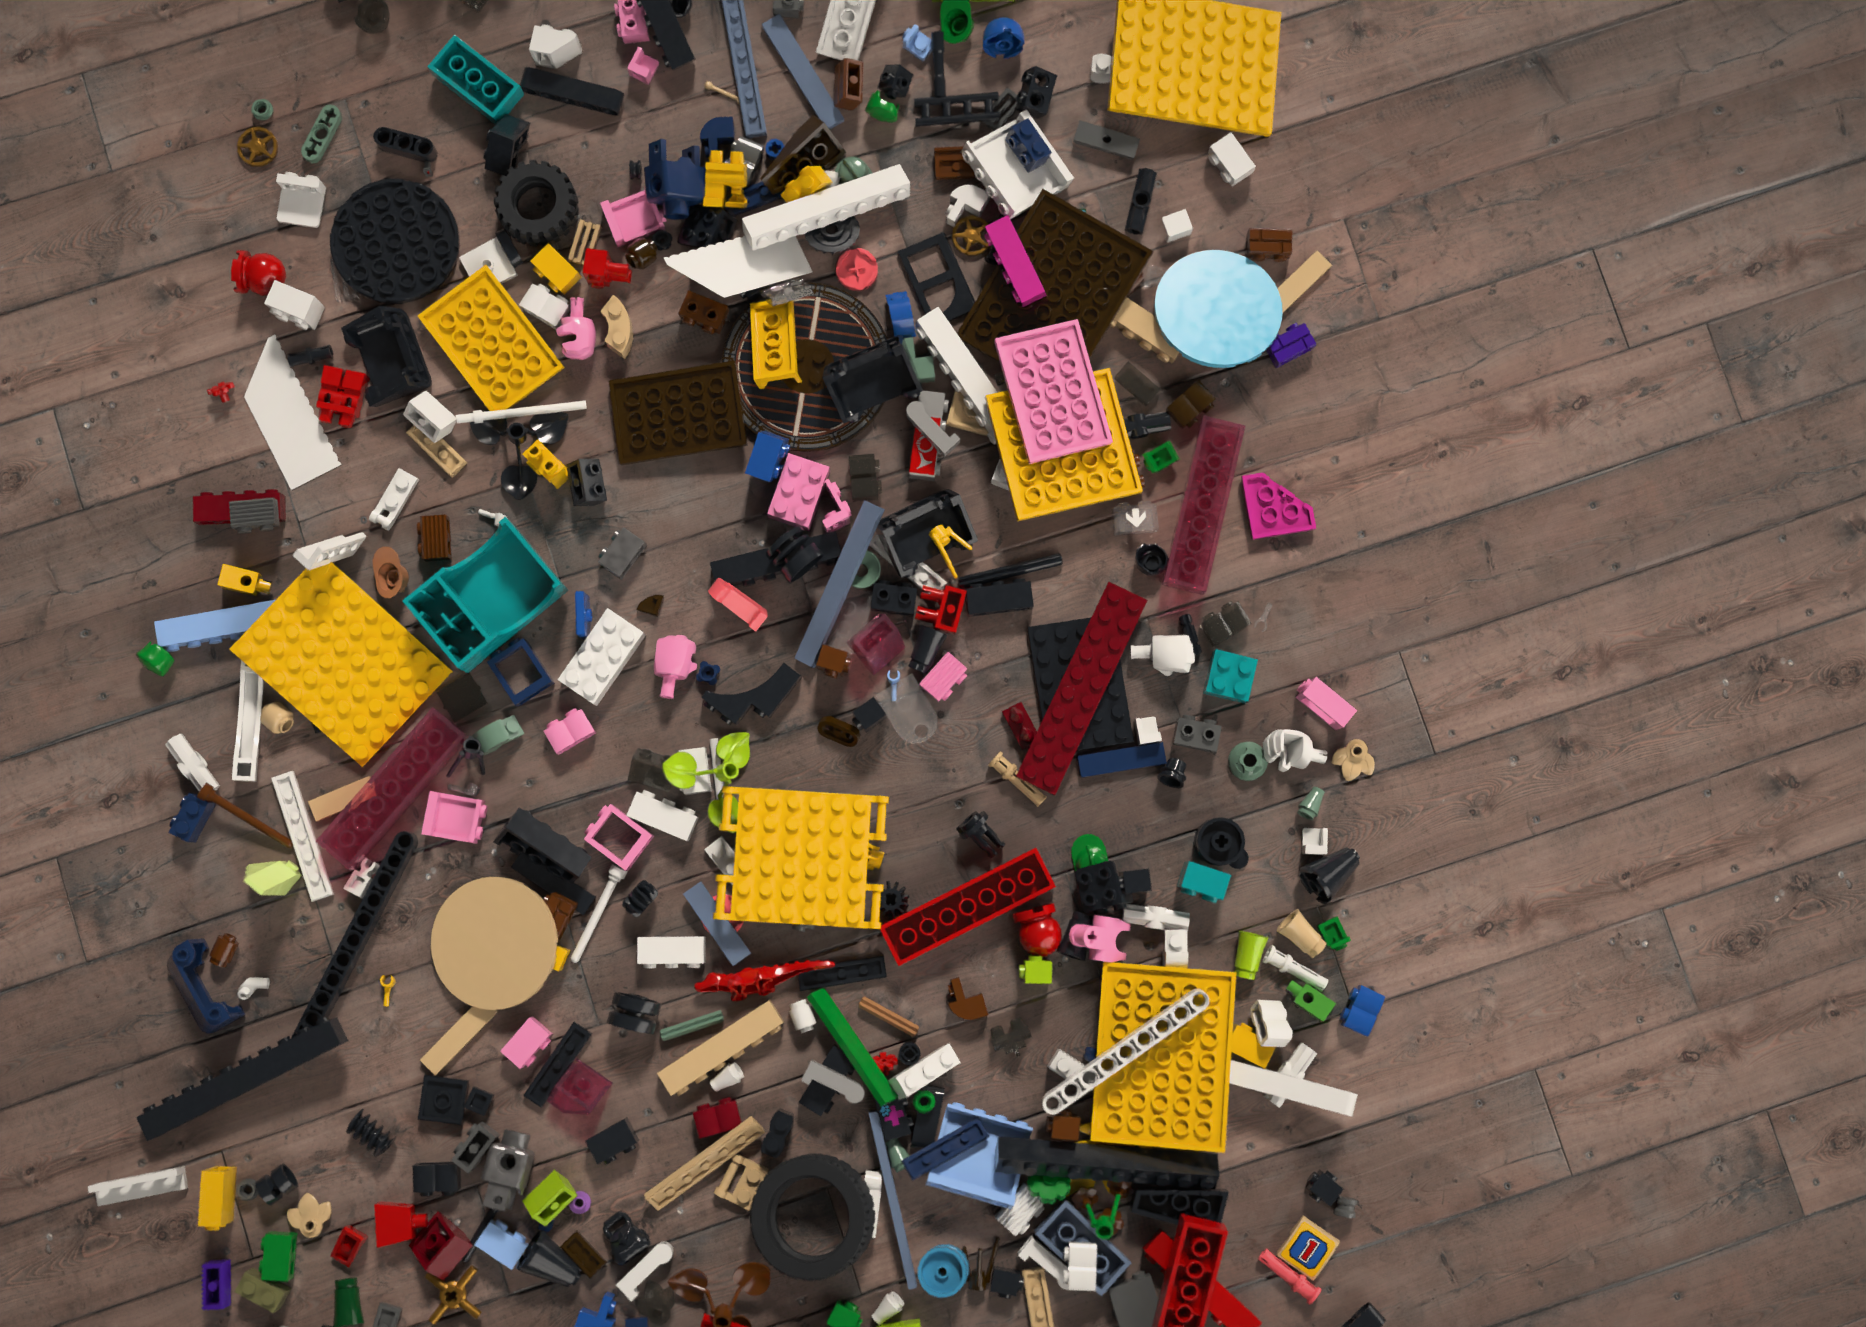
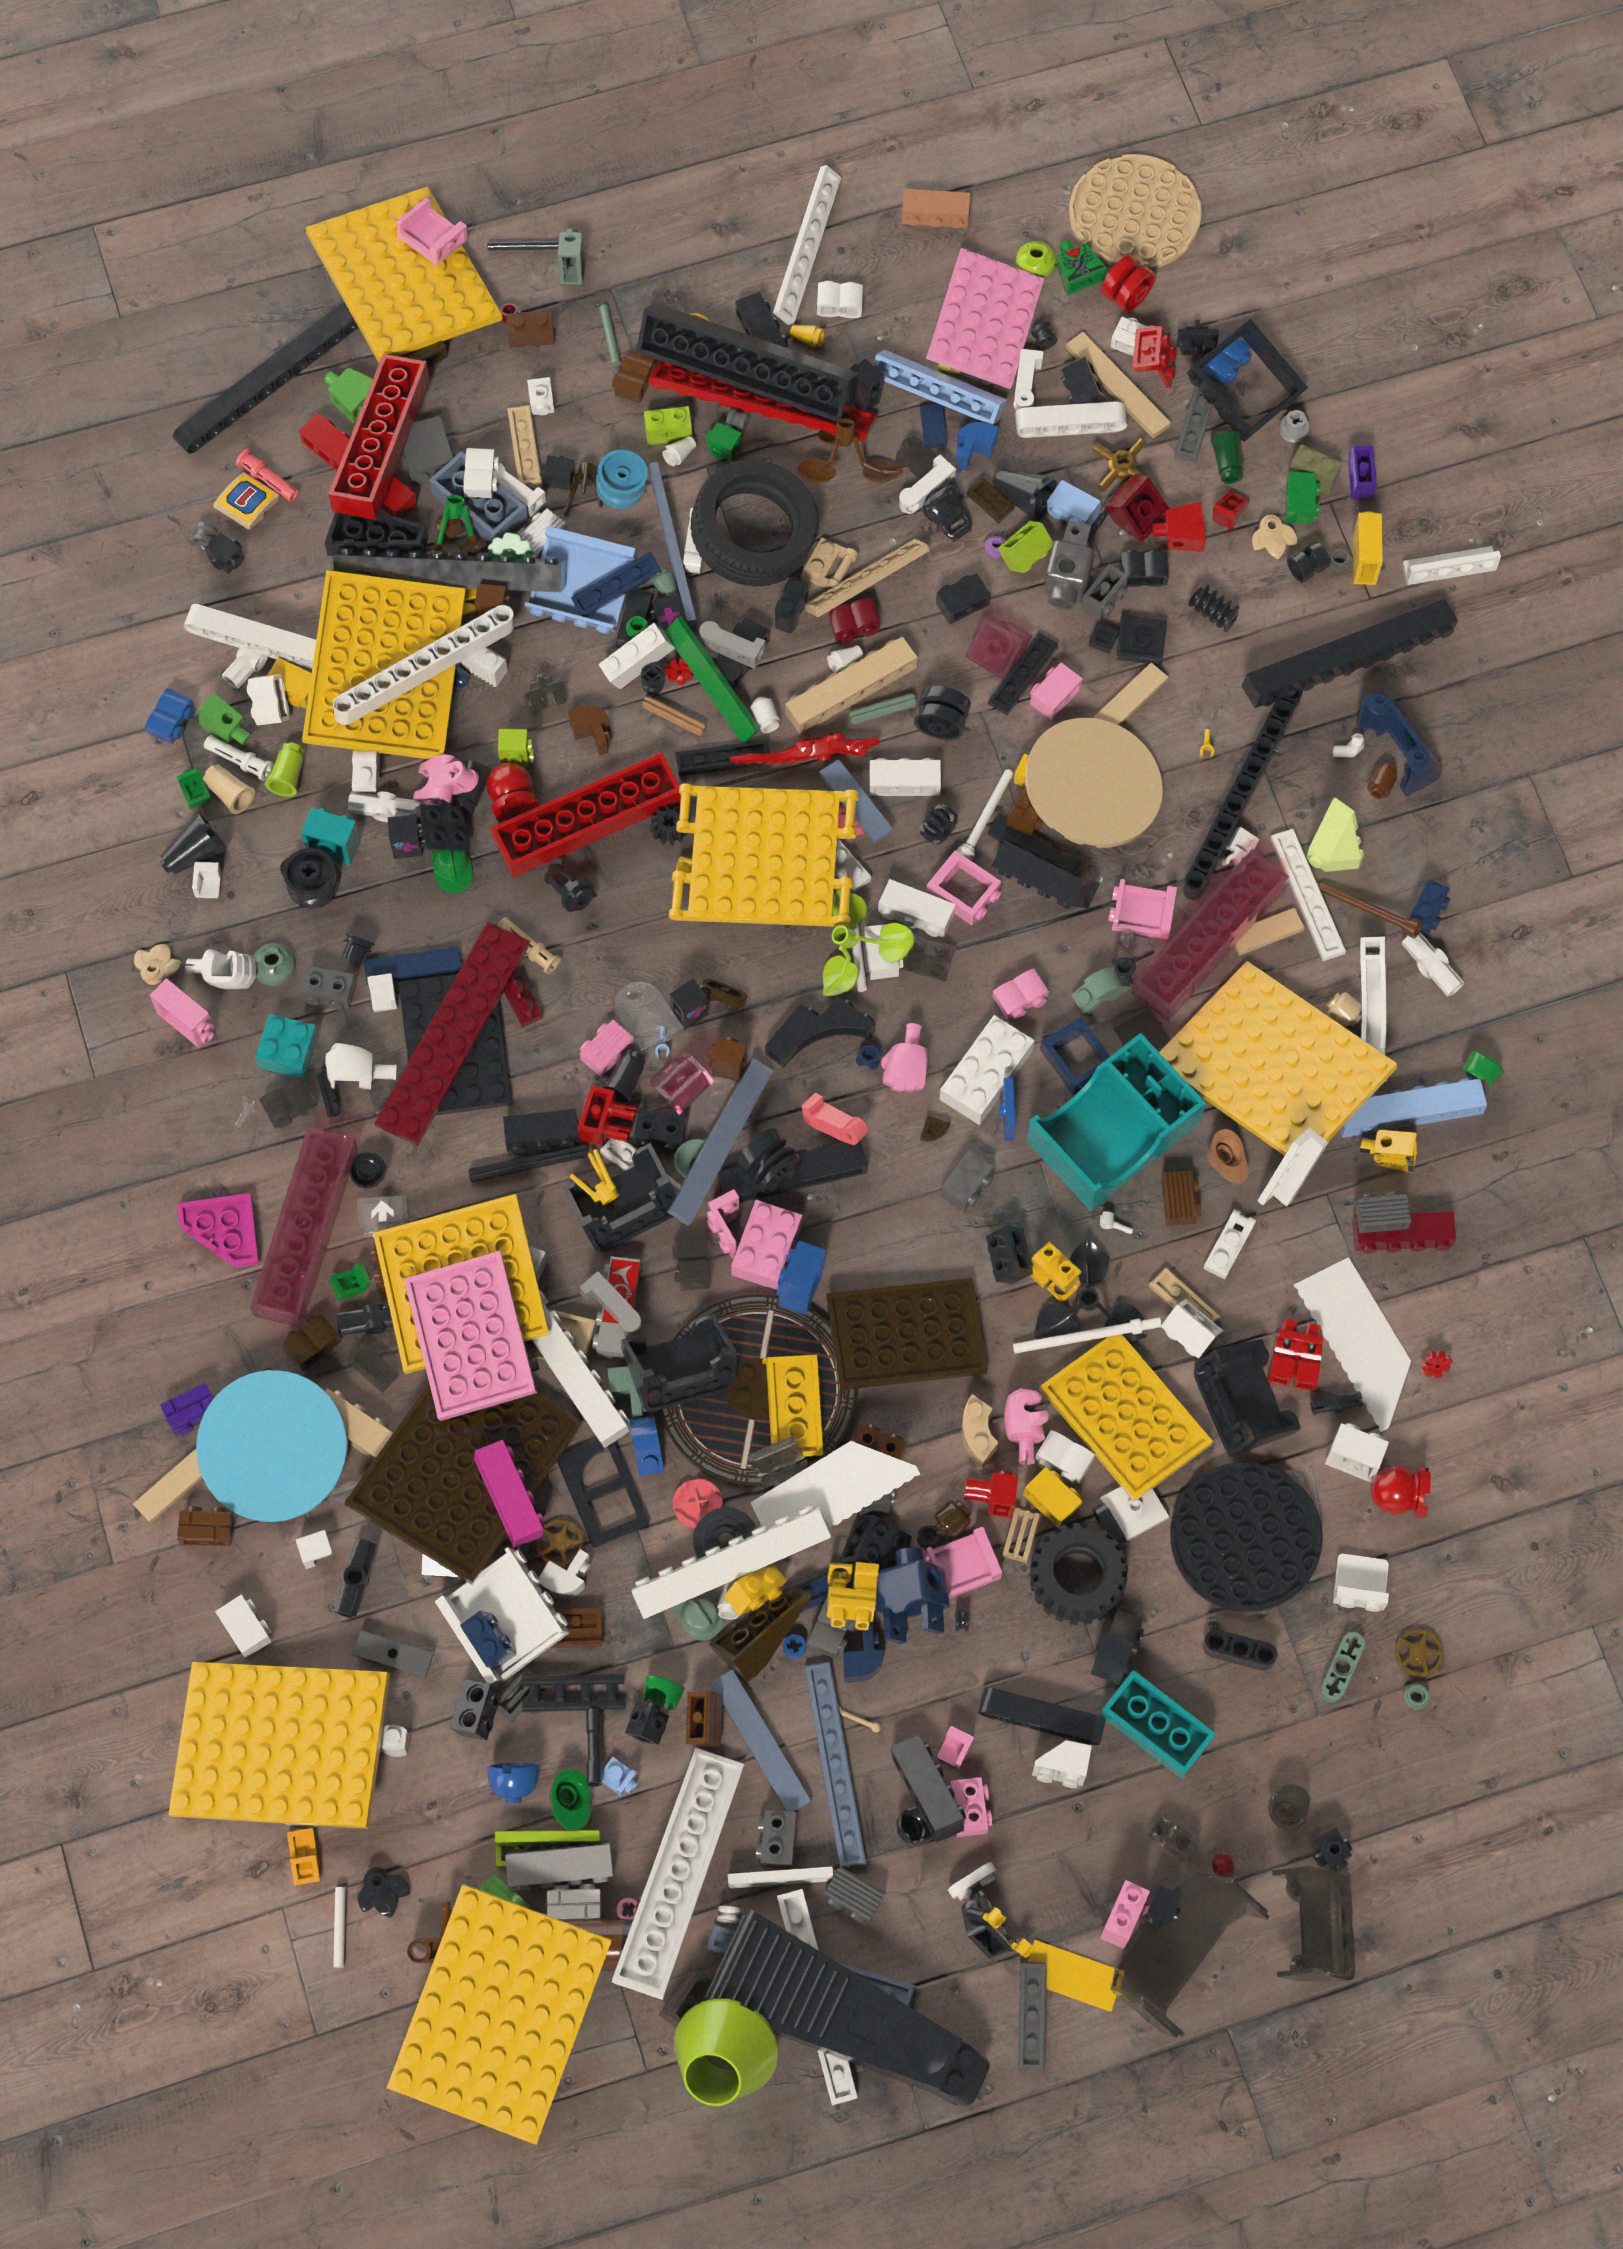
camera: 175 degrees left, 15 degrees down
(1311, 804) = (207, 918): sand green cone -> none

